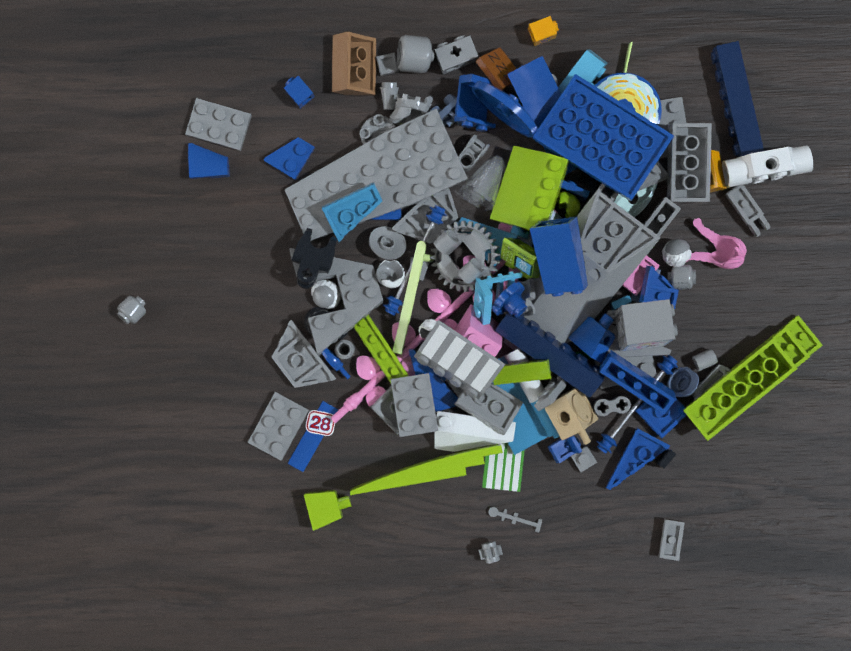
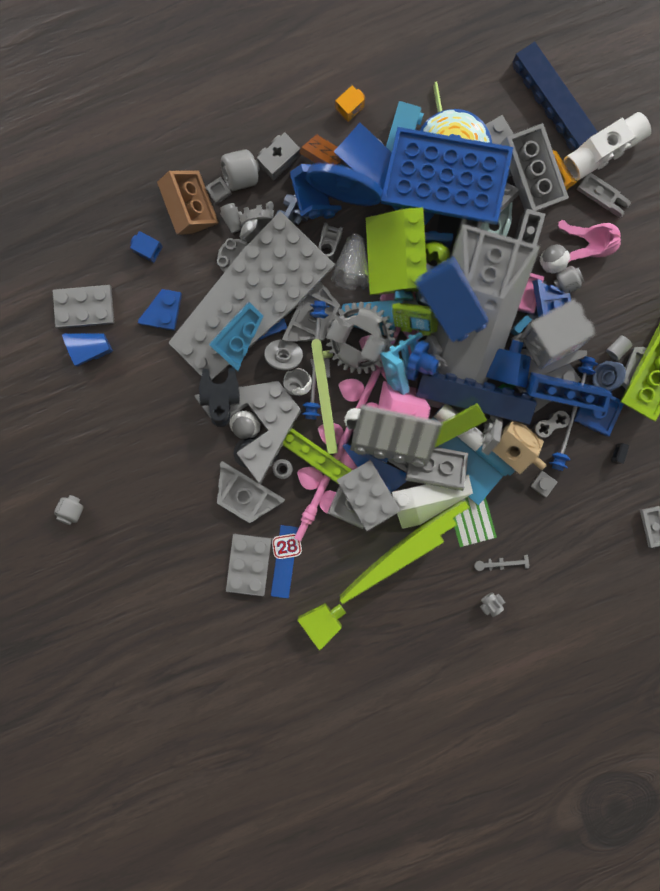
camera: 25 degrees left, 0 degrees up
(335, 362) = (278, 484): blue hand -> none
(565, 448) = (522, 482): blue bracket -> none
(639, 451) = (592, 456): blue wing -> none

